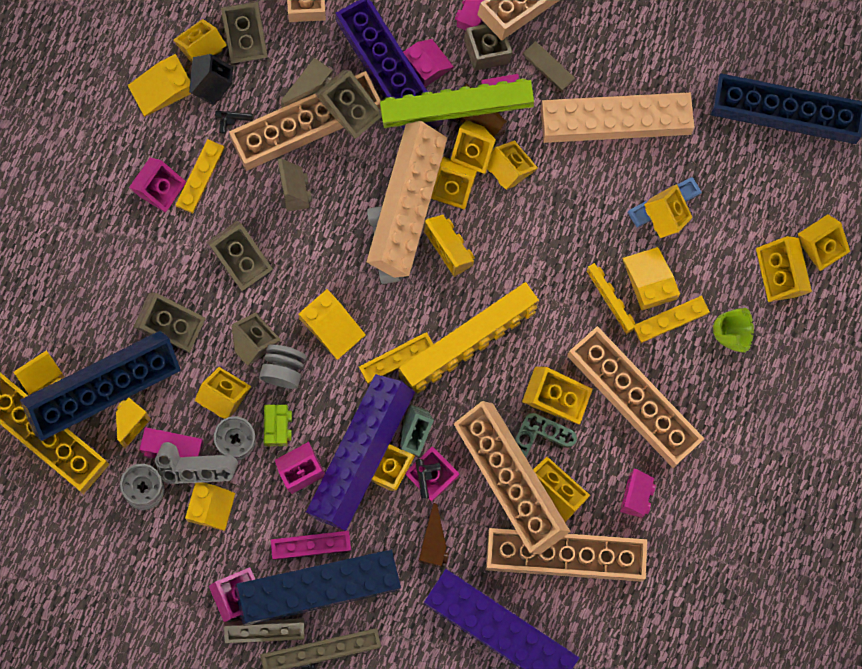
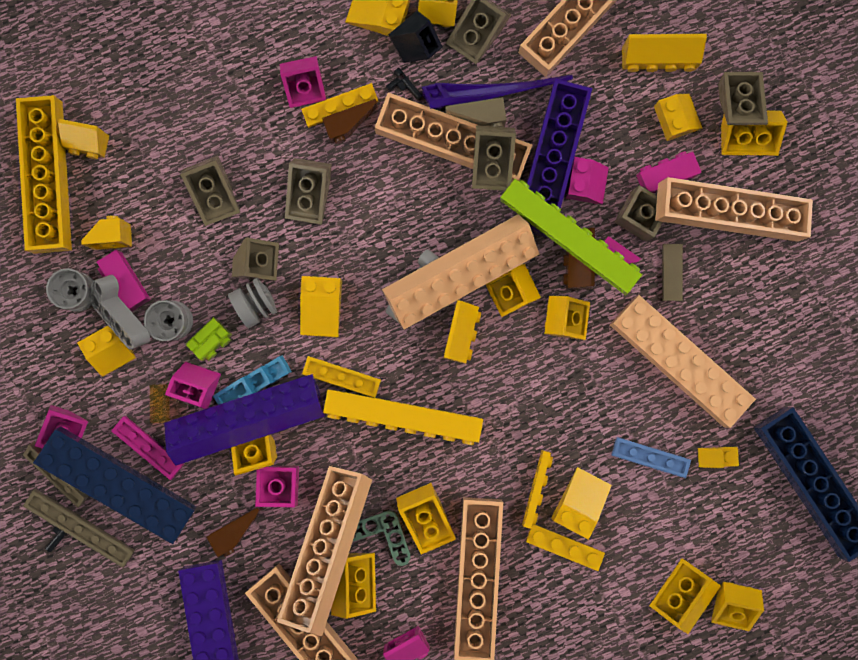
camera: 50 degrees right, 10 degrees up
(100, 385) = (107, 189): dark blue brick -> none
(216, 186) = (344, 123): none -> reddish brown slope
(222, 393) = (196, 278): yellow slope -> none
(270, 95) = (448, 94): none -> dark purple plate
(286, 507) = (159, 404): none -> clear yellow slope
(294, 186) = (393, 178): dark tan slope -> none
(339, 422) = (254, 381): none -> dark azure slope
(415, 429) = (297, 444): sand green slope -> none
(425, 475) = (268, 485): black hose -> none
(473, 147) = (551, 279): yellow slope -> none
(668, 211) = (645, 469): yellow slope -> none
(707, 157) = (718, 457): none -> yellow slope
(734, 329) = (601, 604): lime hair -> none

